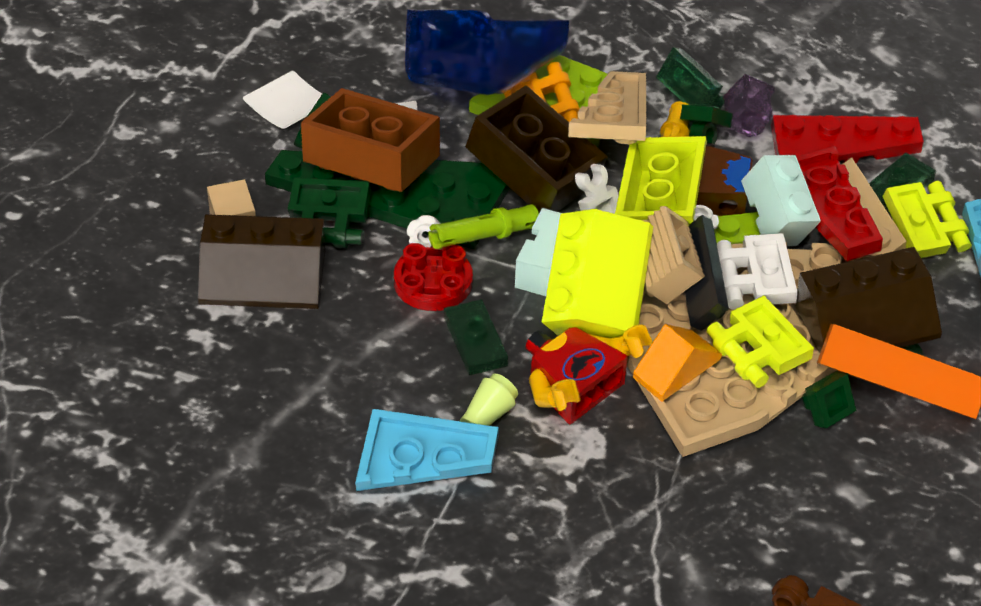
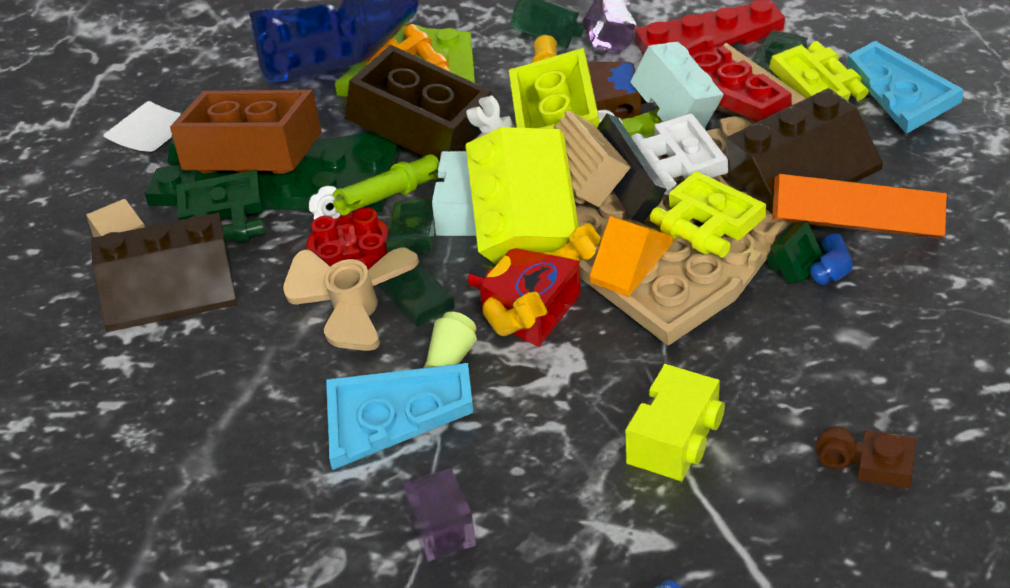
camera: 10 degrees left, 5 degrees down
(418, 325) = (350, 291): none -> tan piece
(431, 559) = (439, 514): none -> clear purple brick
(492, 276) = (412, 226): none -> clear green plate
(615, 110) = (485, 49): tan wing -> none
(658, 536) = (675, 426): none -> neon yellow brick
(705, 120) = (573, 39): dark green tile -> none
(861, 419) = (834, 263): none -> blue arm

